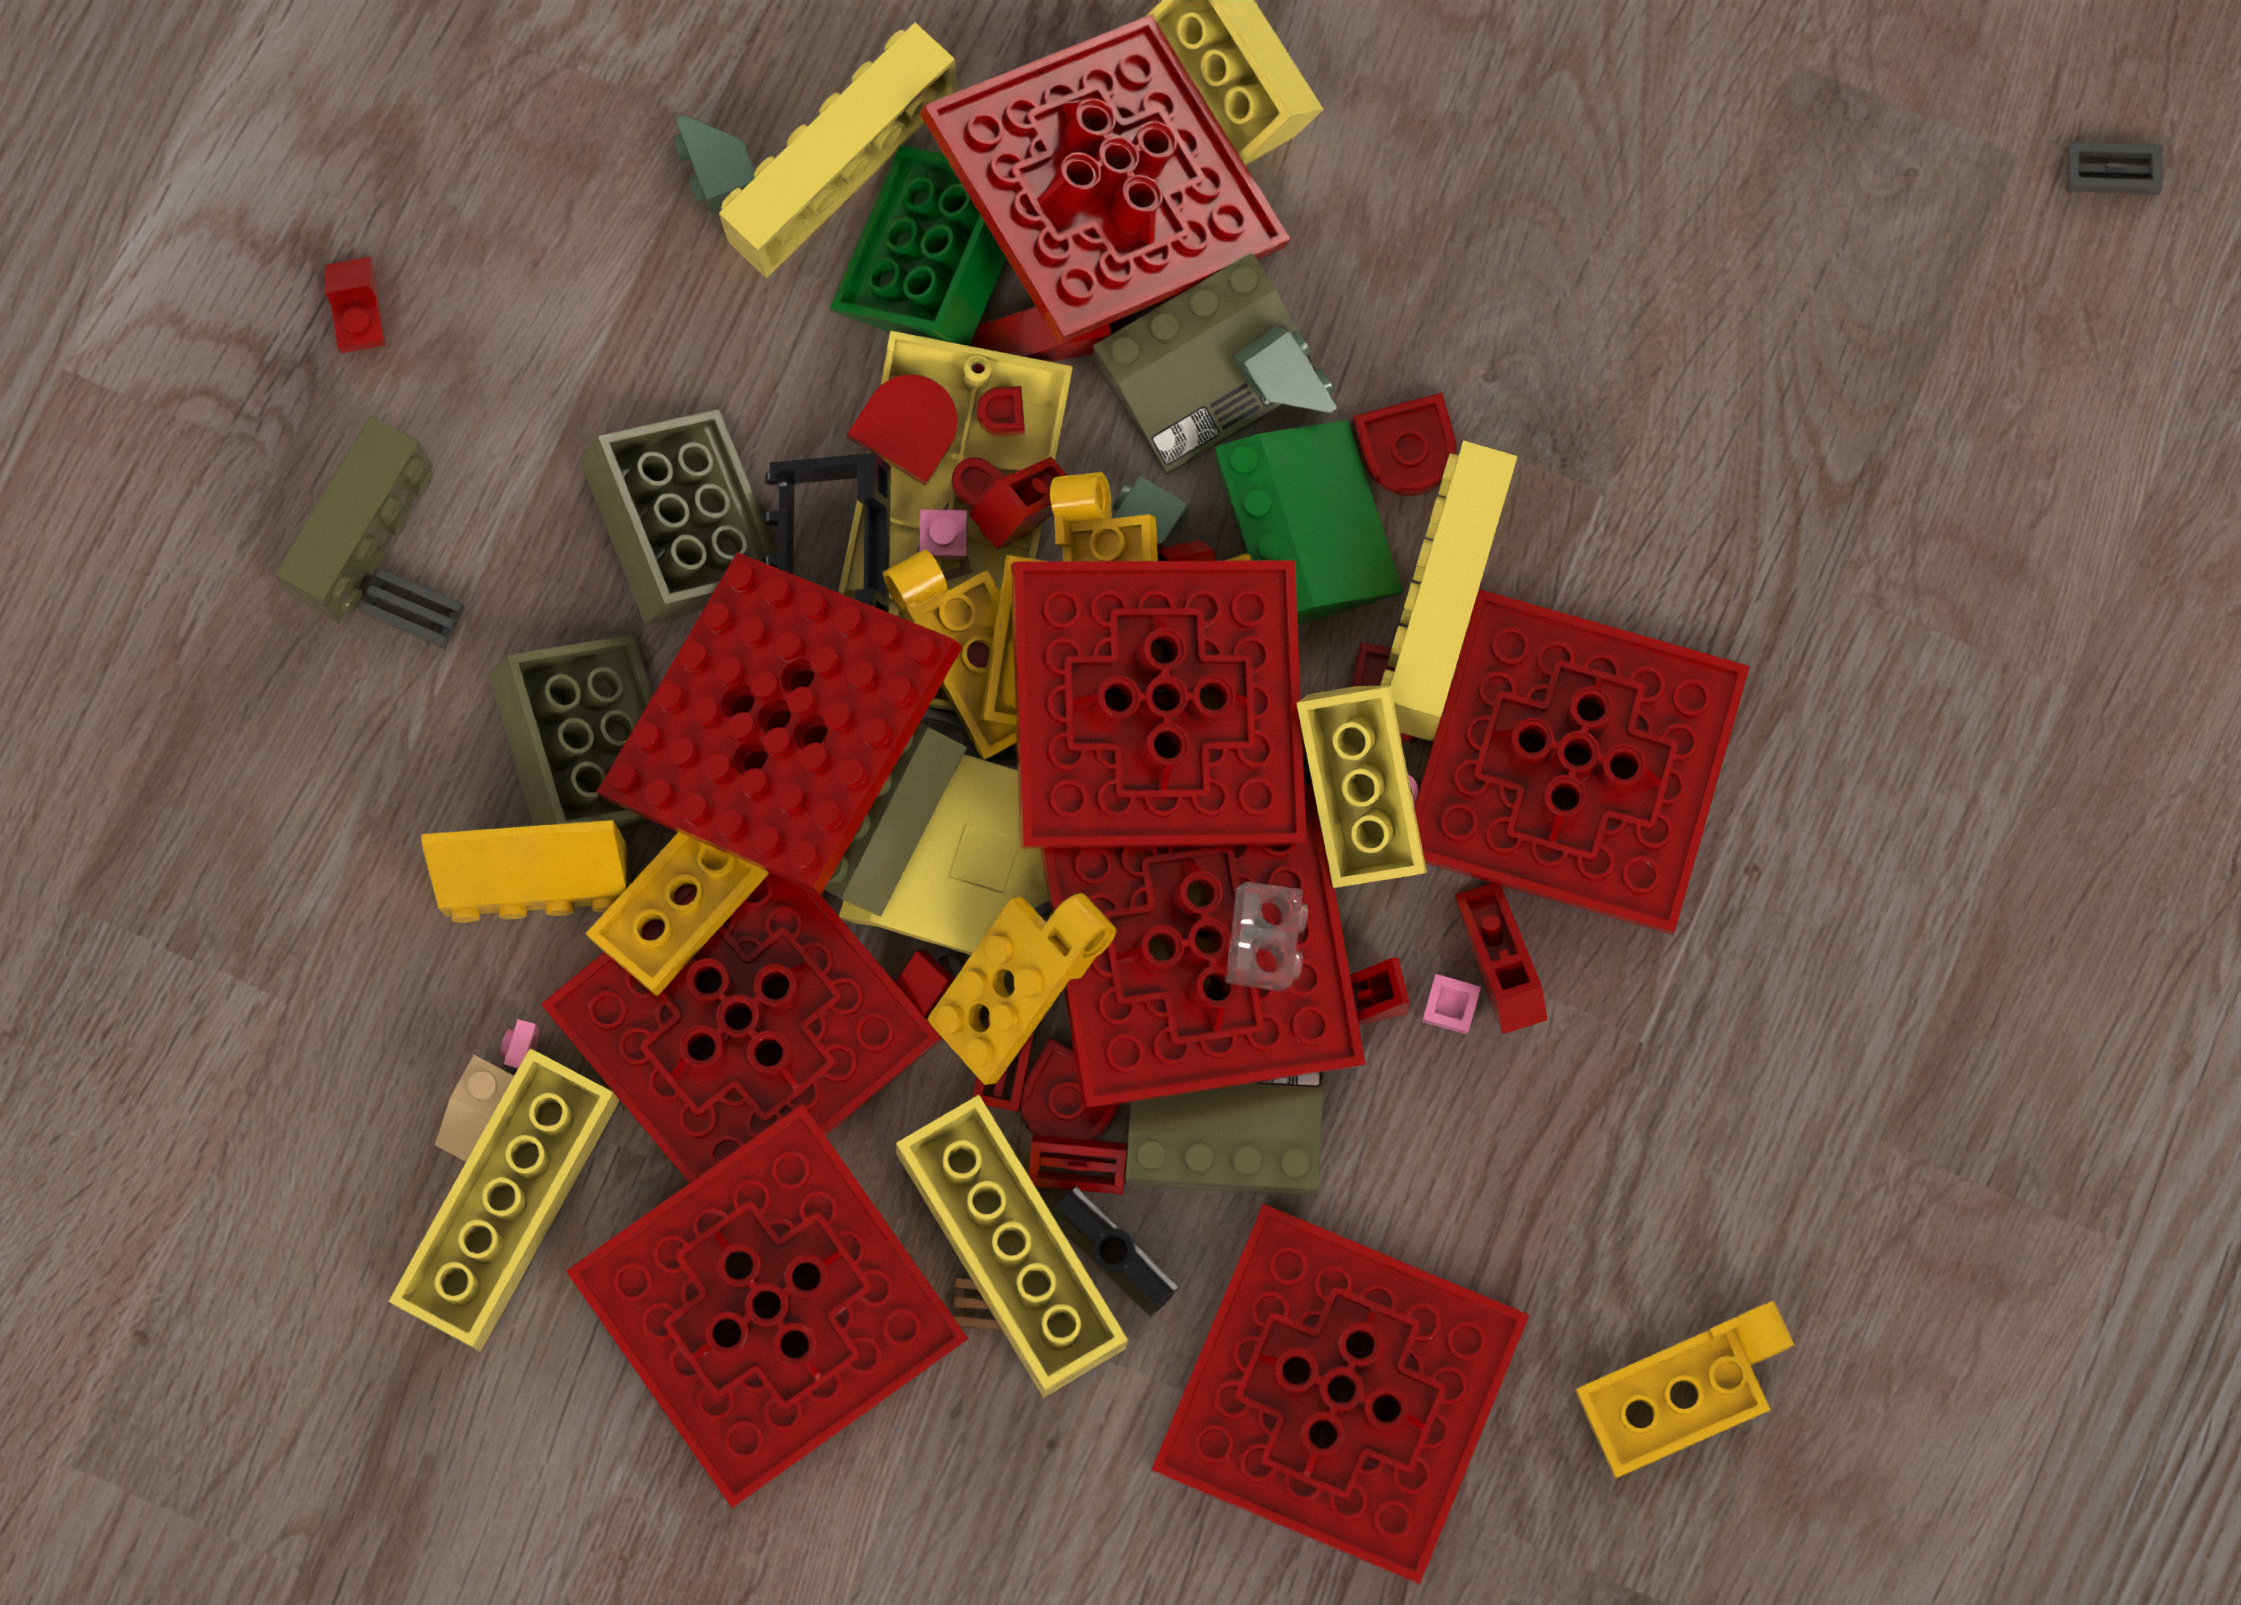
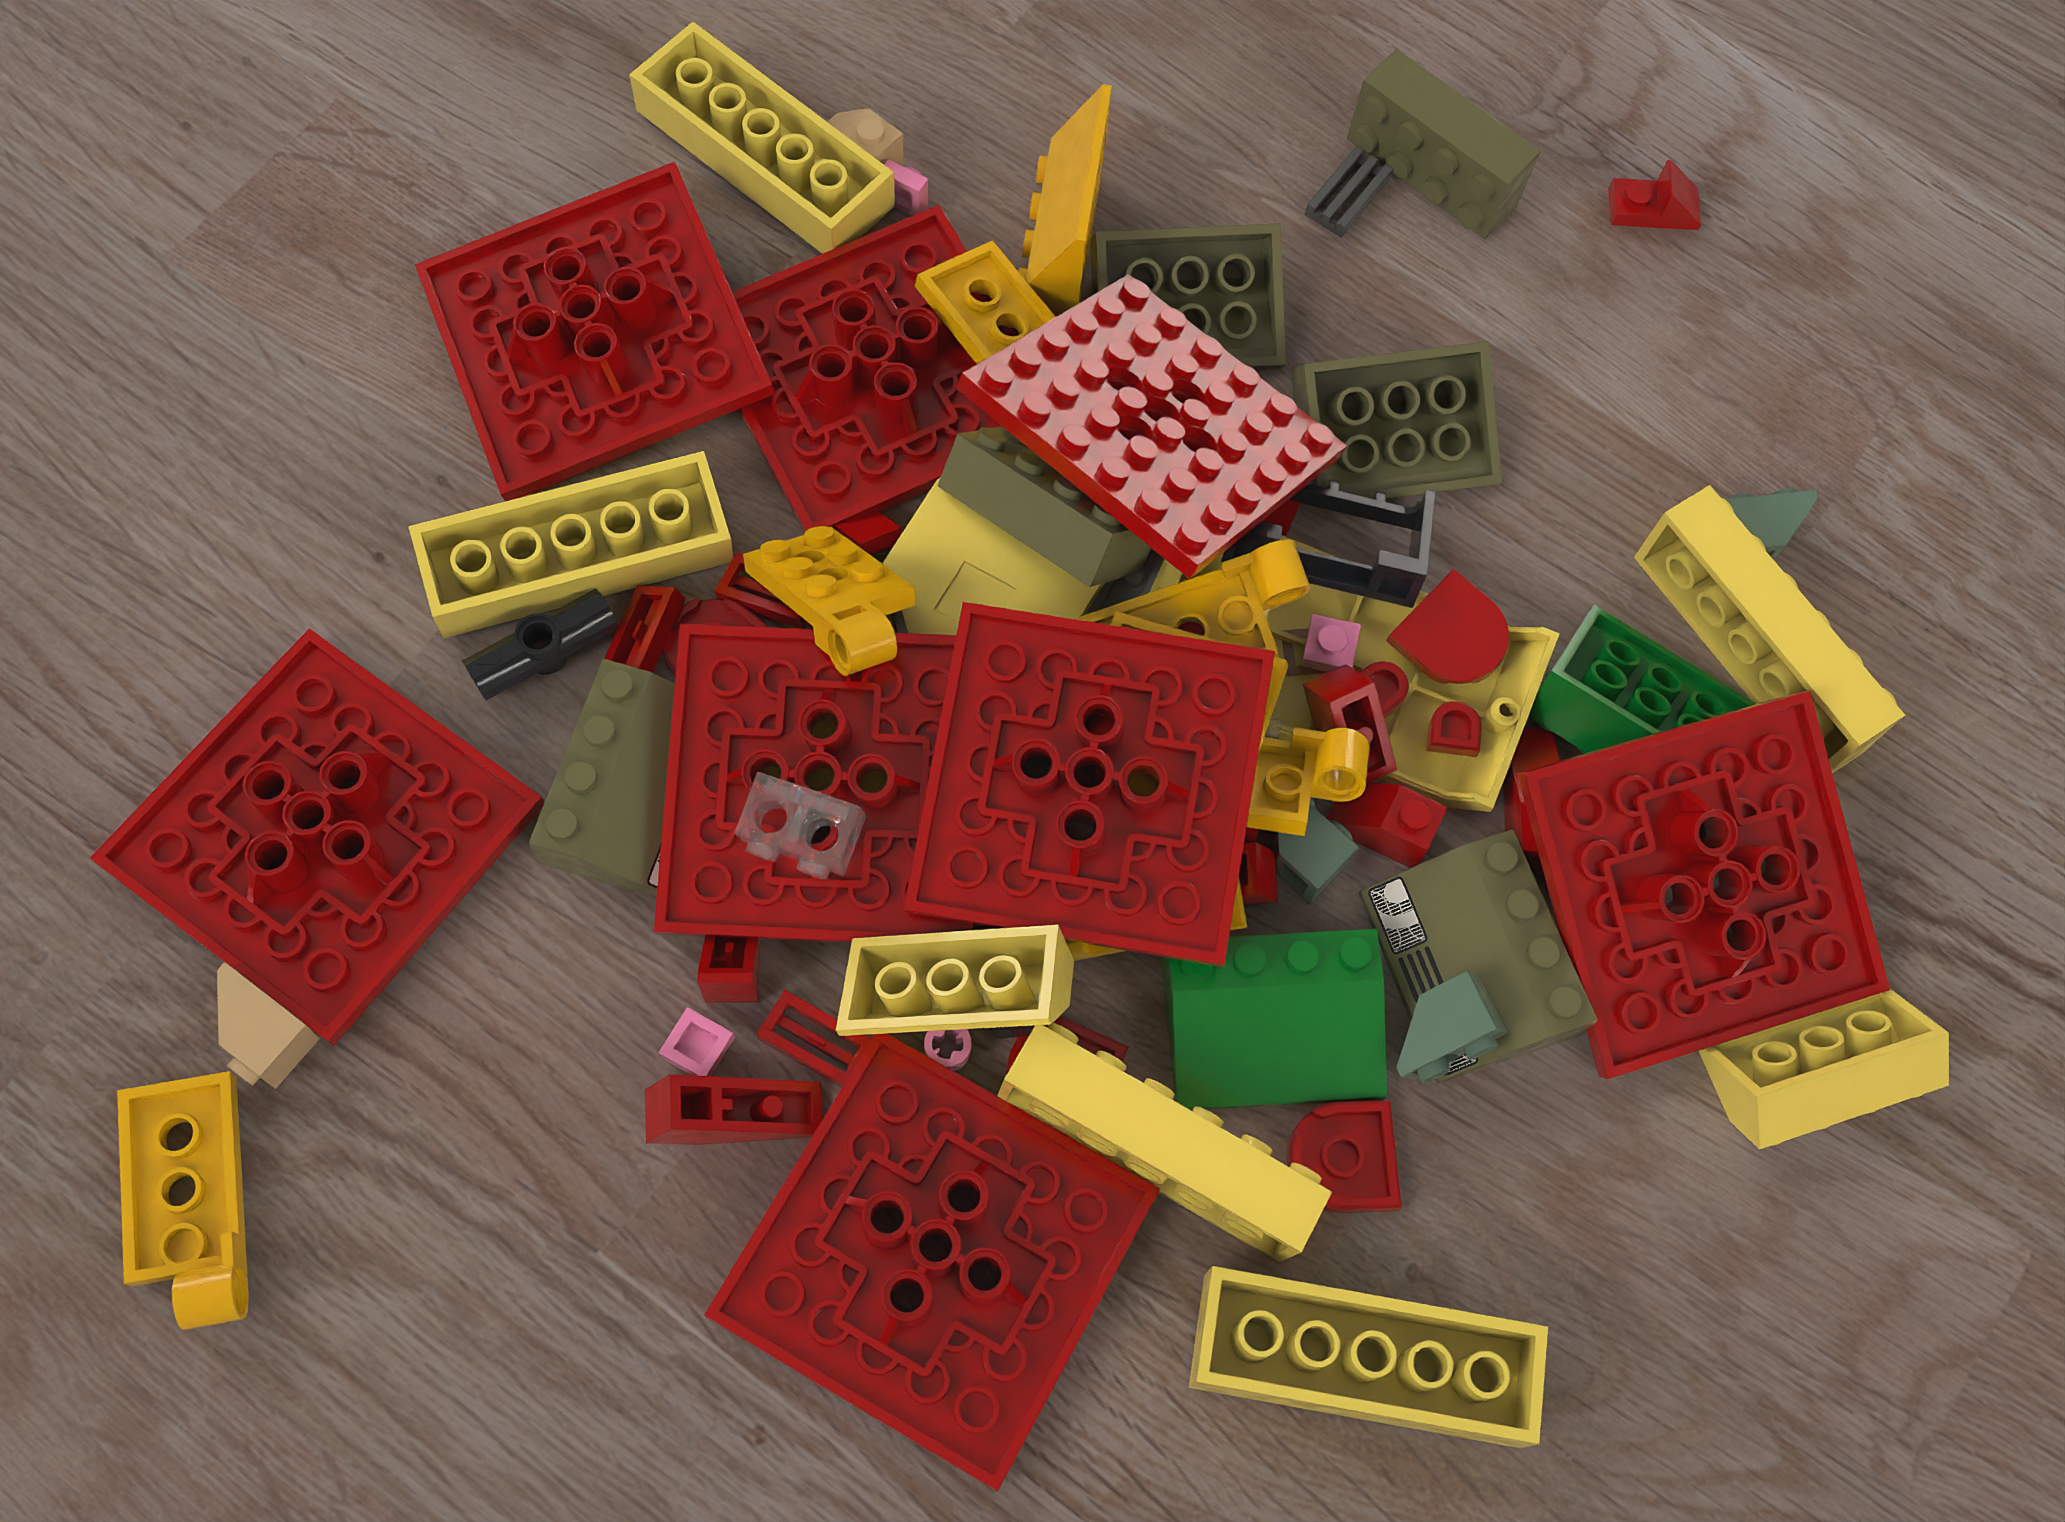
camera: 90 degrees right, 10 degrees down
(1103, 445) = (1391, 821): none -> red slope
(1408, 946) = (822, 1019): none -> red tile
(1534, 1378) = (258, 1030): none -> tan slope
(1575, 398) = (1370, 1357): none -> light yellow brick

